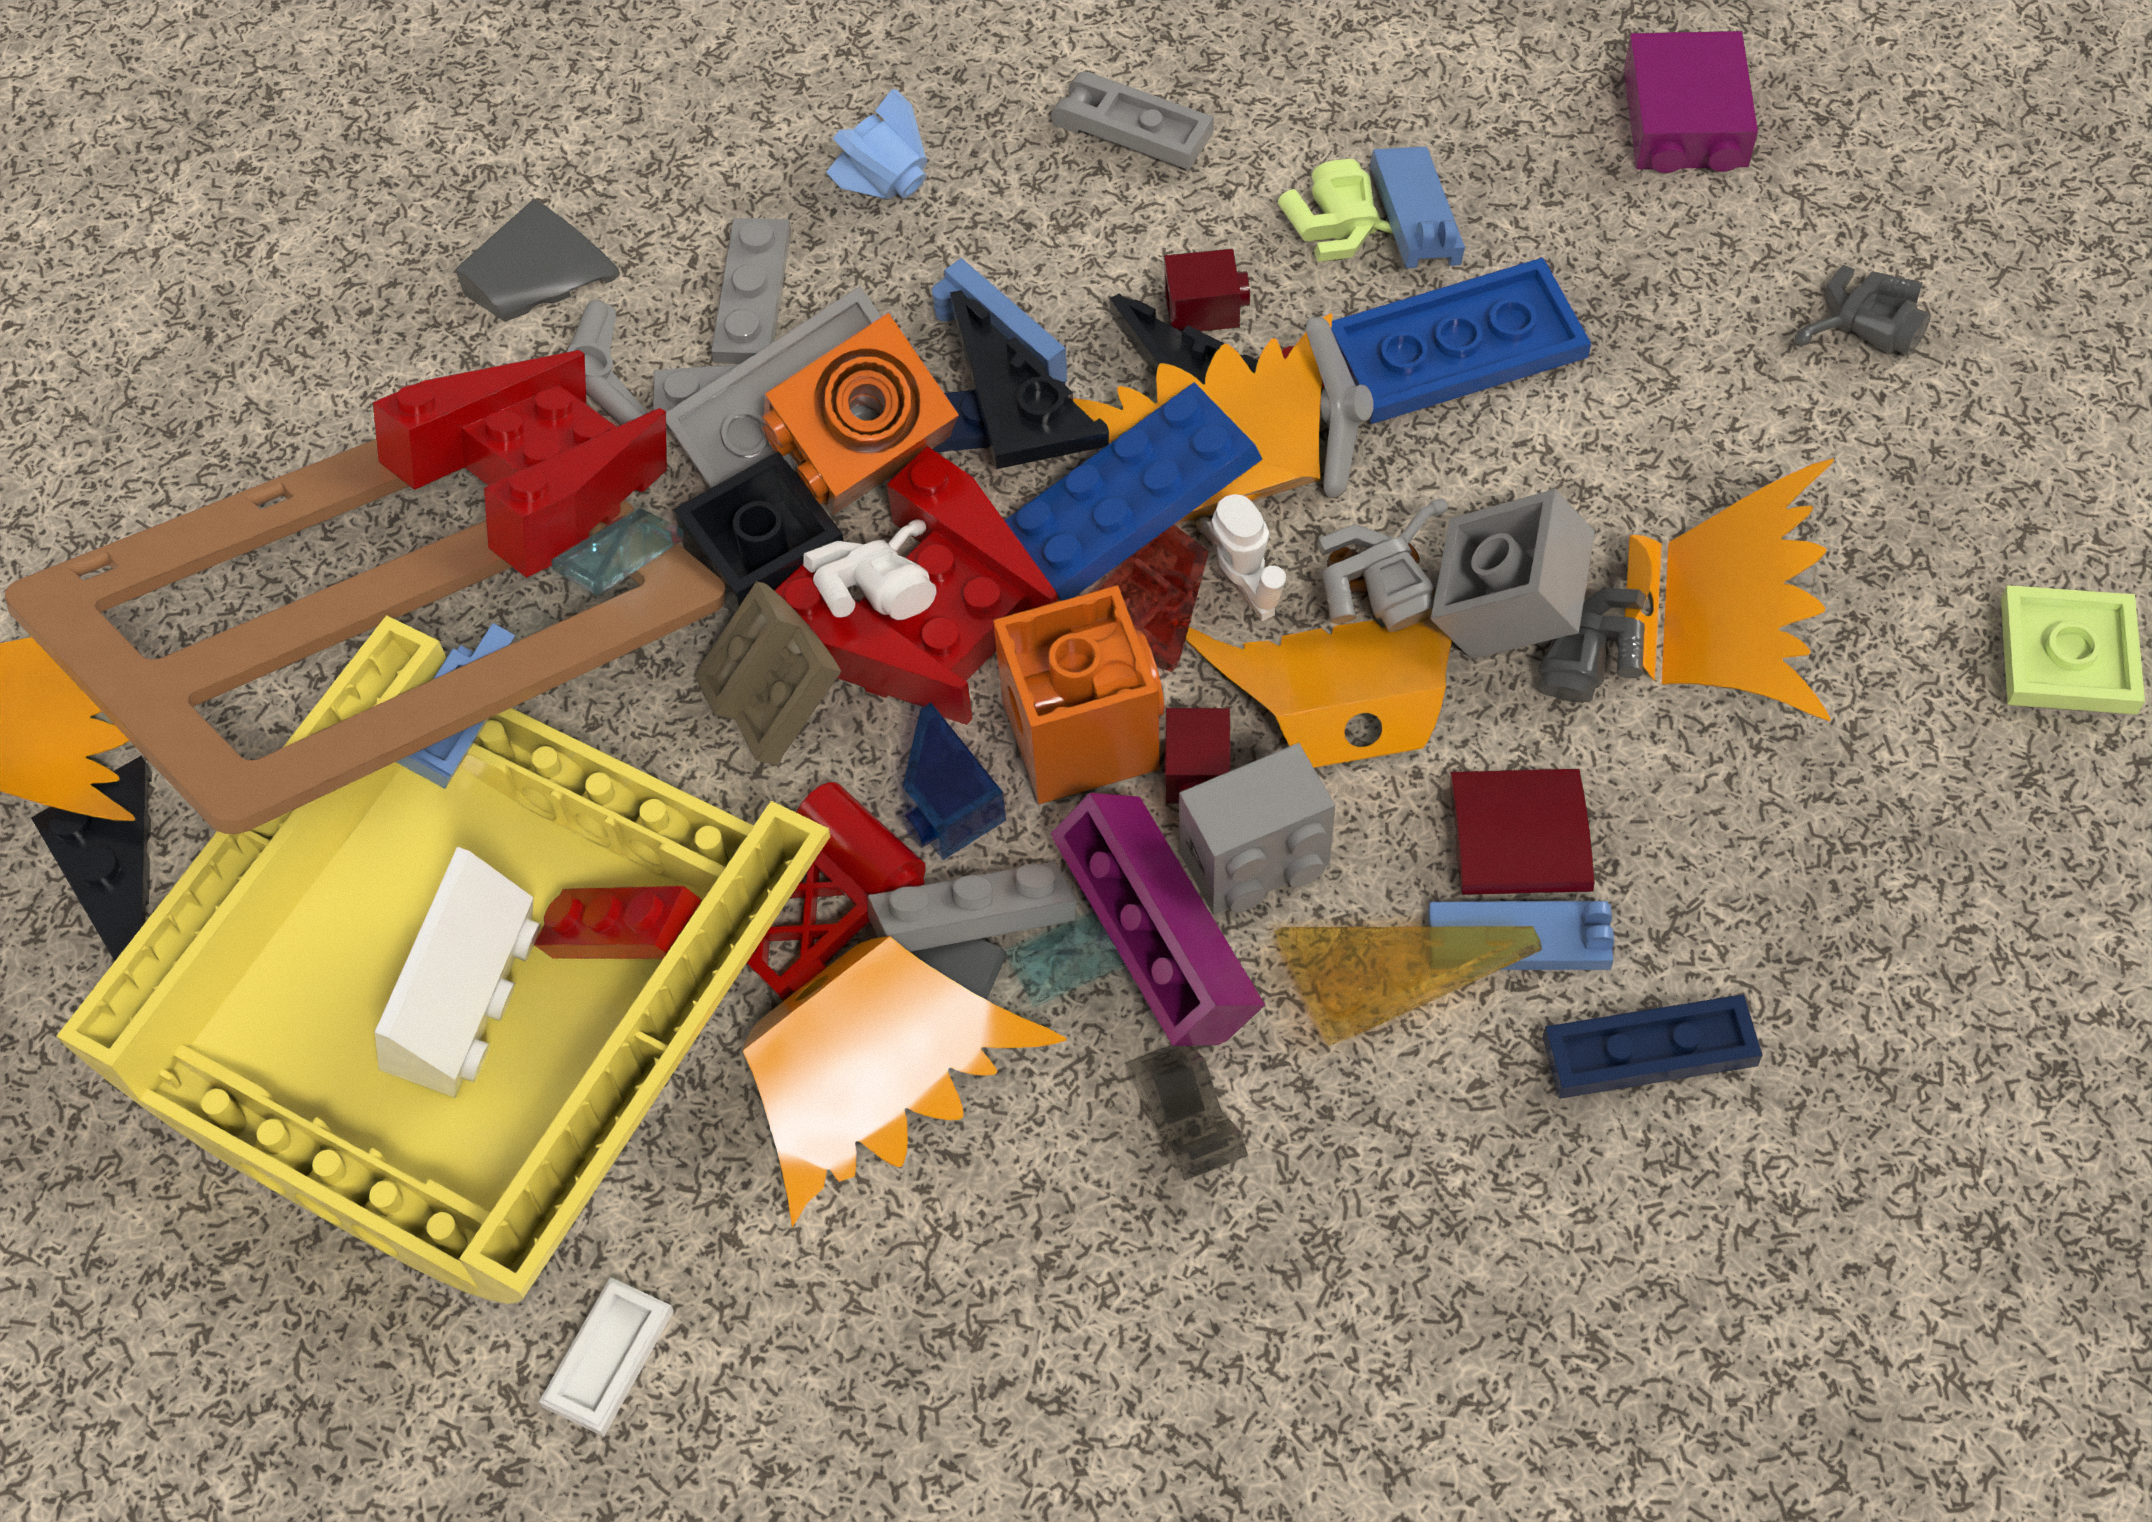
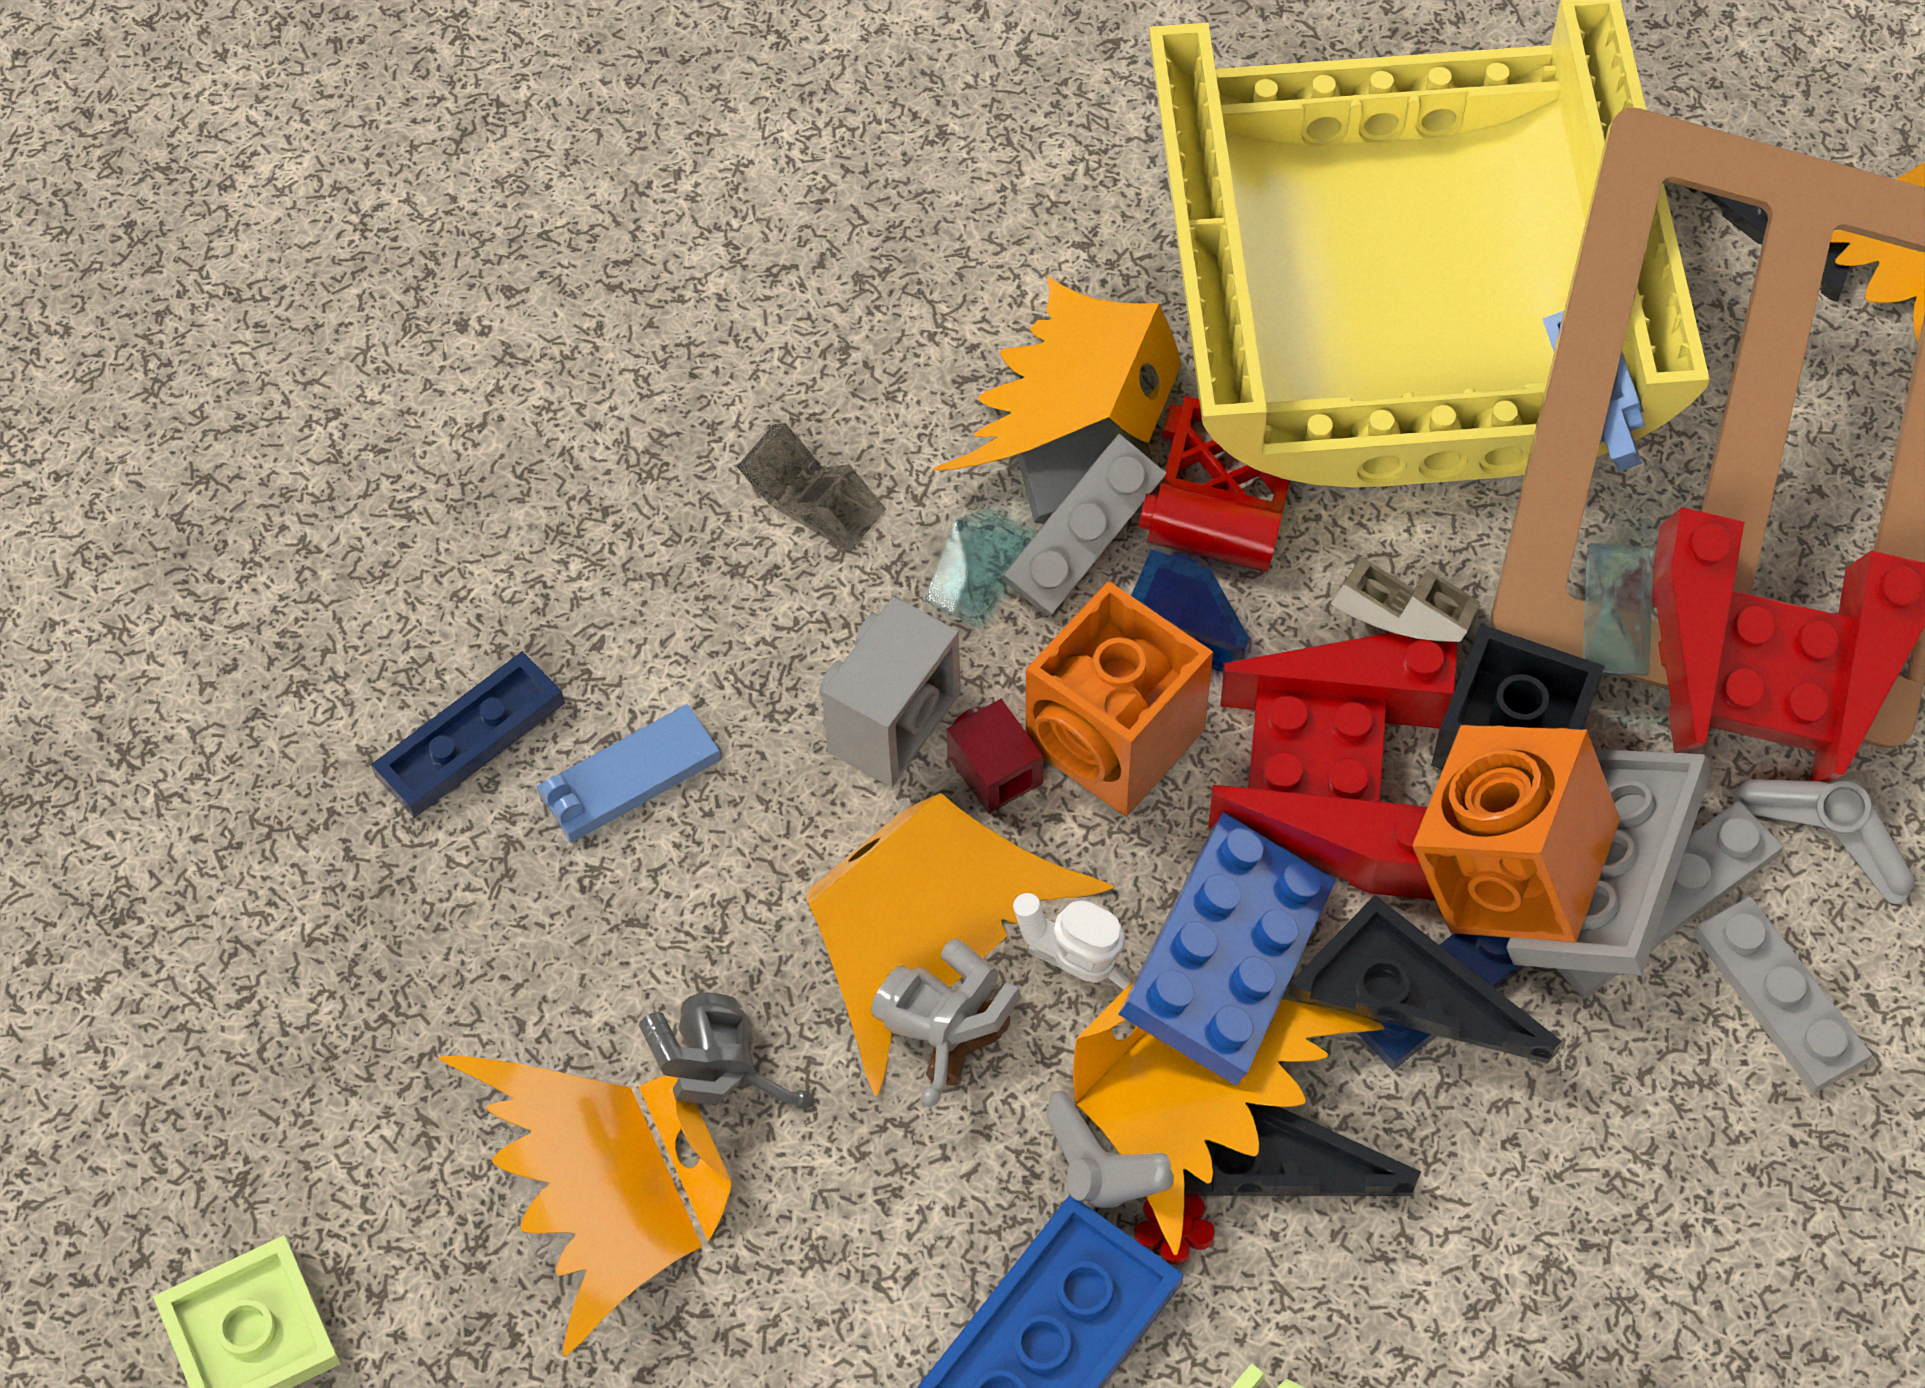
camera: 145 degrees right, 0 degrees up
(456, 977) = (1410, 228): white slope -> none
(606, 1356) = (1104, 132): white tile -> none
(616, 922) = (1327, 322): red plate -> none
(882, 155) = (1790, 1205): light blue brick -> none
(886, 579) = (1366, 712): white piece -> none
(1003, 313) = (1502, 1081): medium blue hinge -> none
(1156, 920) = (868, 561): magenta brick -> none
(1162, 591) = (1118, 874): clear red slope -> none
(1205, 290) = (1335, 1240): dark red brick -> none
(1378, 973) = (727, 663): clear yellow wing -> none
(1513, 575) = (812, 1053): light grey brick -> none
(1521, 832) = (677, 856): dark red slope -> none

